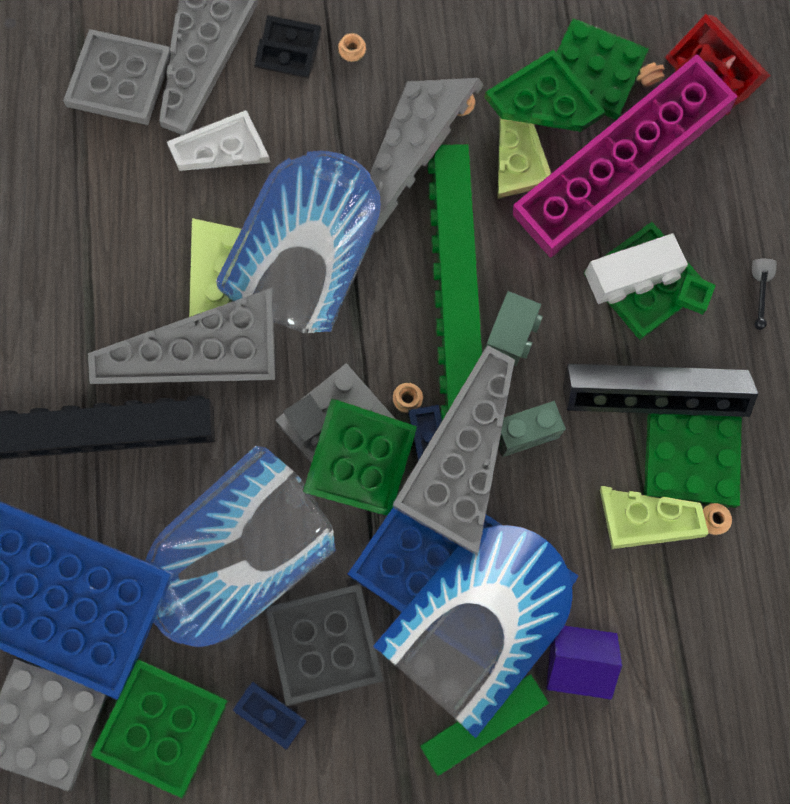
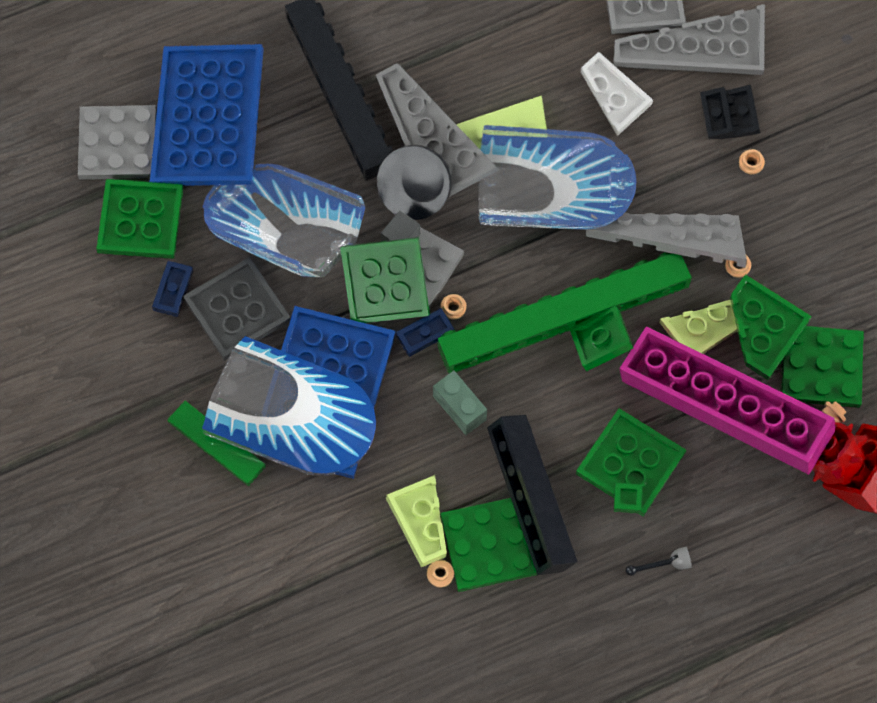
camera: 75 degrees right, 5 degrees down
(247, 384) = (414, 181): none -> piece
(457, 468) = (403, 350): light grey wing -> none
(505, 256) = (601, 338): none -> green plate
(513, 326) = (542, 367): sand green brick -> none
(584, 662) = (288, 501): dark purple slope -> none
(636, 269) = (629, 443): white brick -> none

